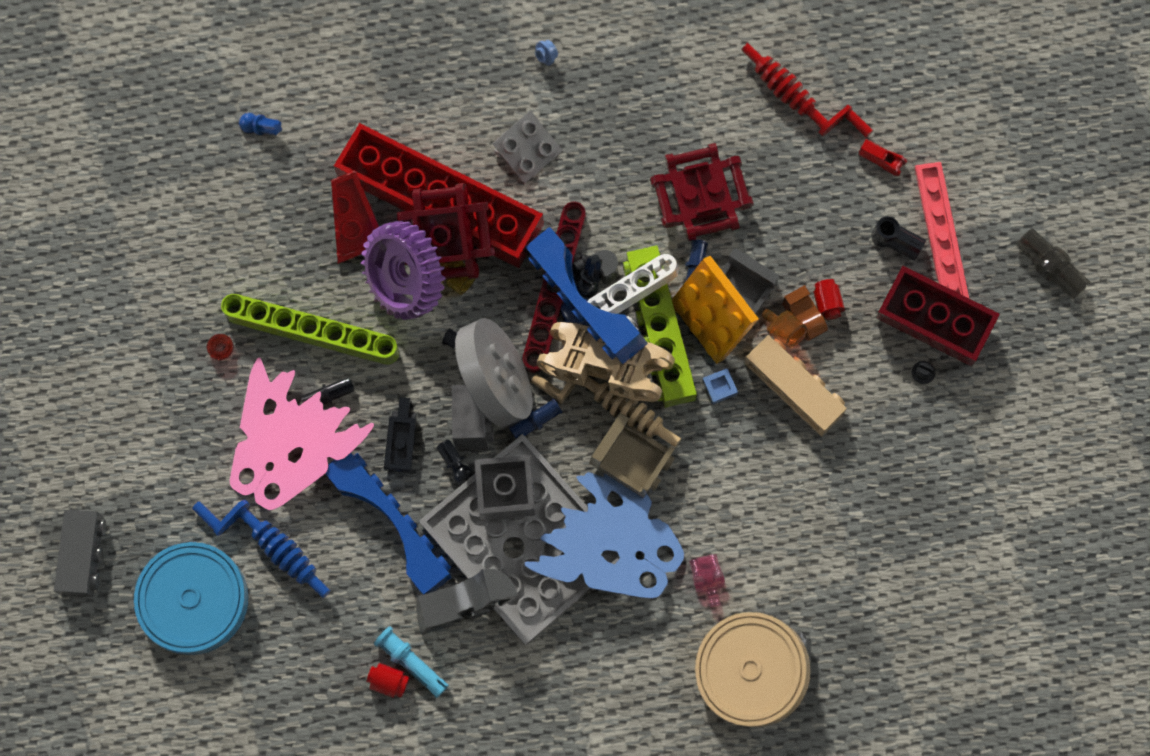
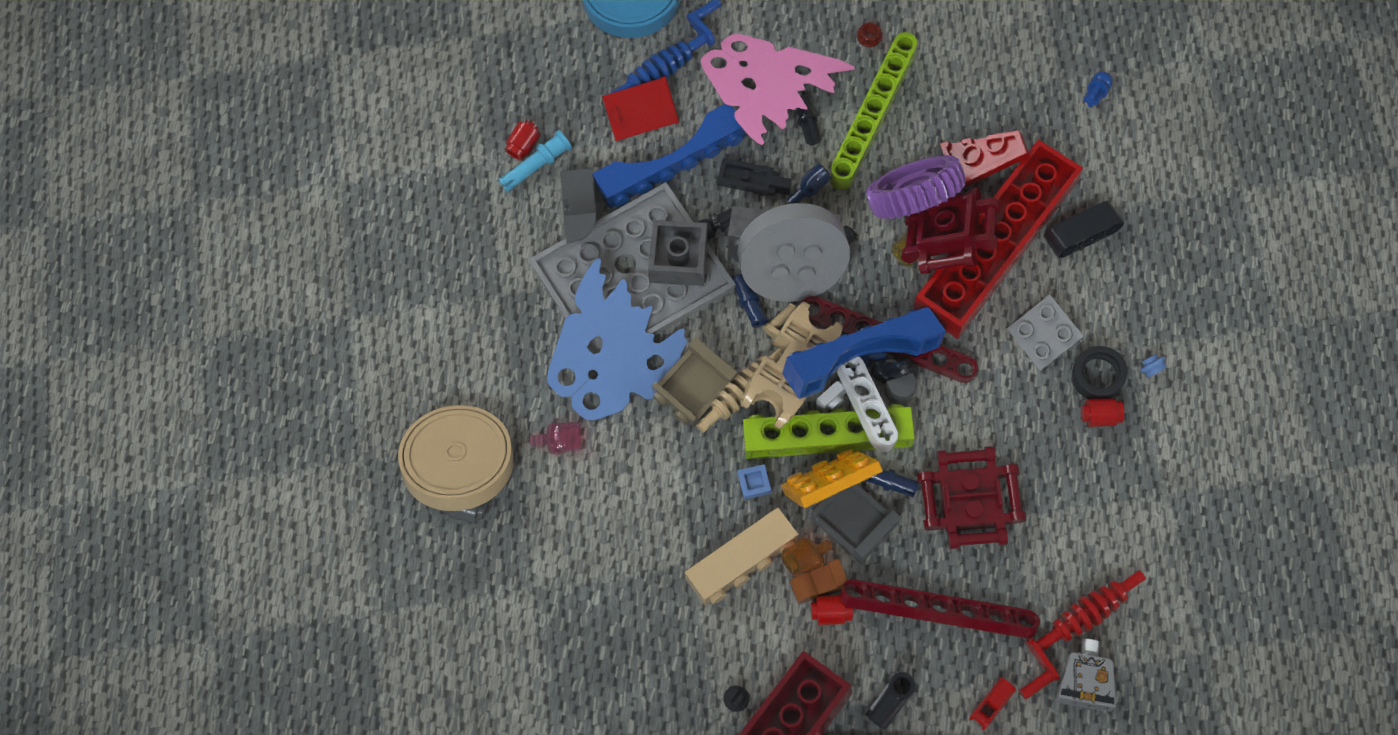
camera: 100 degrees right, 5 degrees down
(336, 563) = (640, 109): none -> red container
(401, 377) = (811, 183): none -> dark blue piece
(416, 123) = (1083, 229): none -> black beam
(561, 78) = (1103, 353): none -> black tyre
(598, 91) = (1102, 412): none -> red brick
(817, 216) = (926, 611): none -> dark red beam
(846, 82) = (1087, 679): none -> light grey torso

